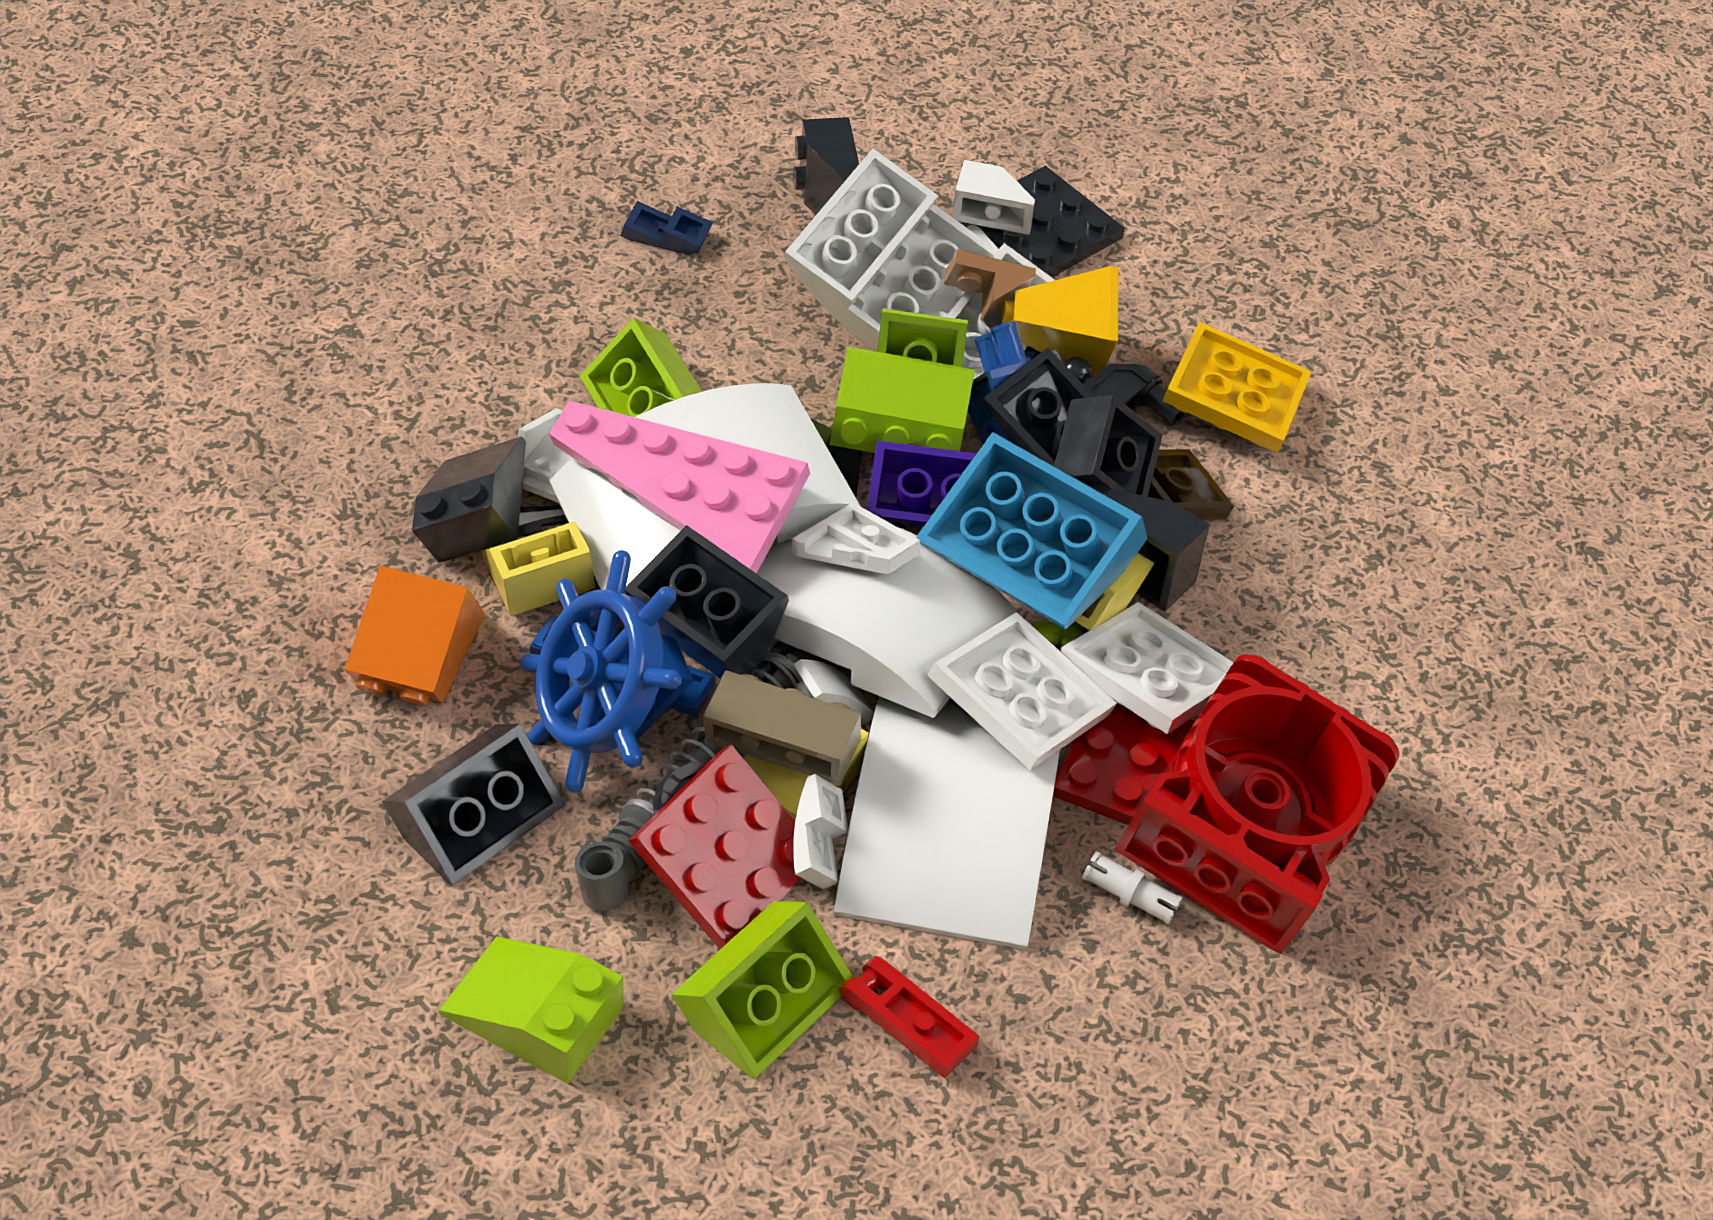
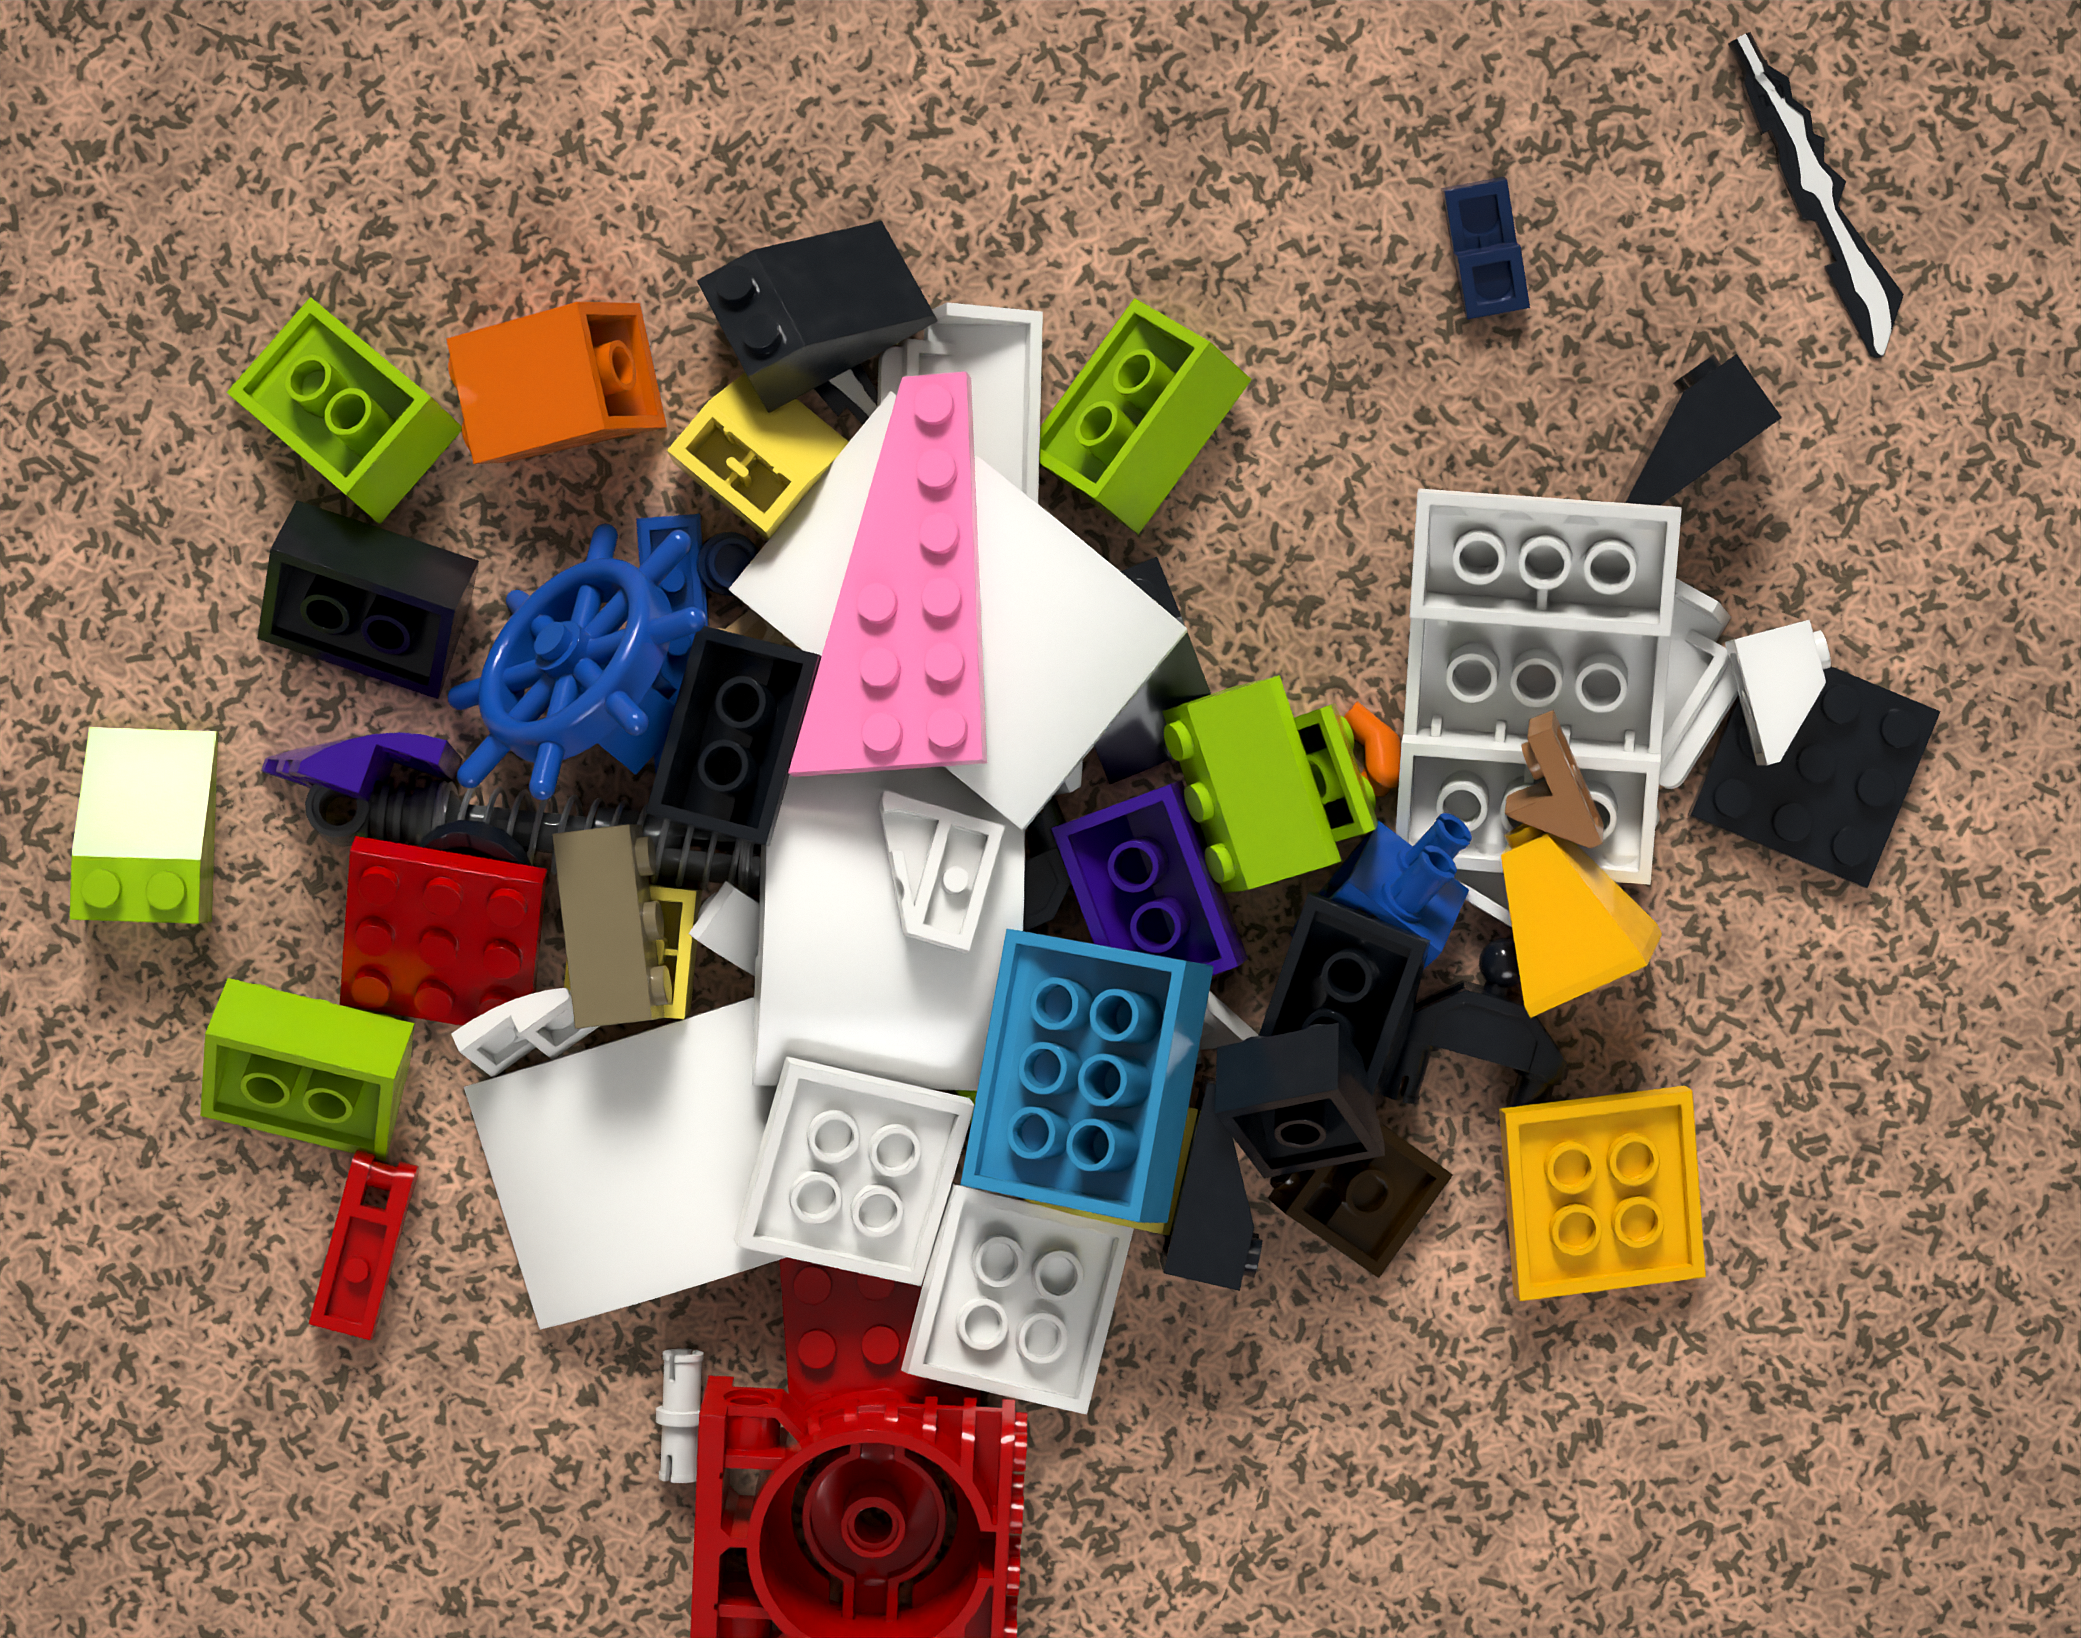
camera: 60 degrees right, 40 degrees up
(345, 753) = (345, 410): none -> lime slope
(582, 829) = (360, 762): none -> dark purple slope
(729, 107) = (1816, 189): none -> black sword

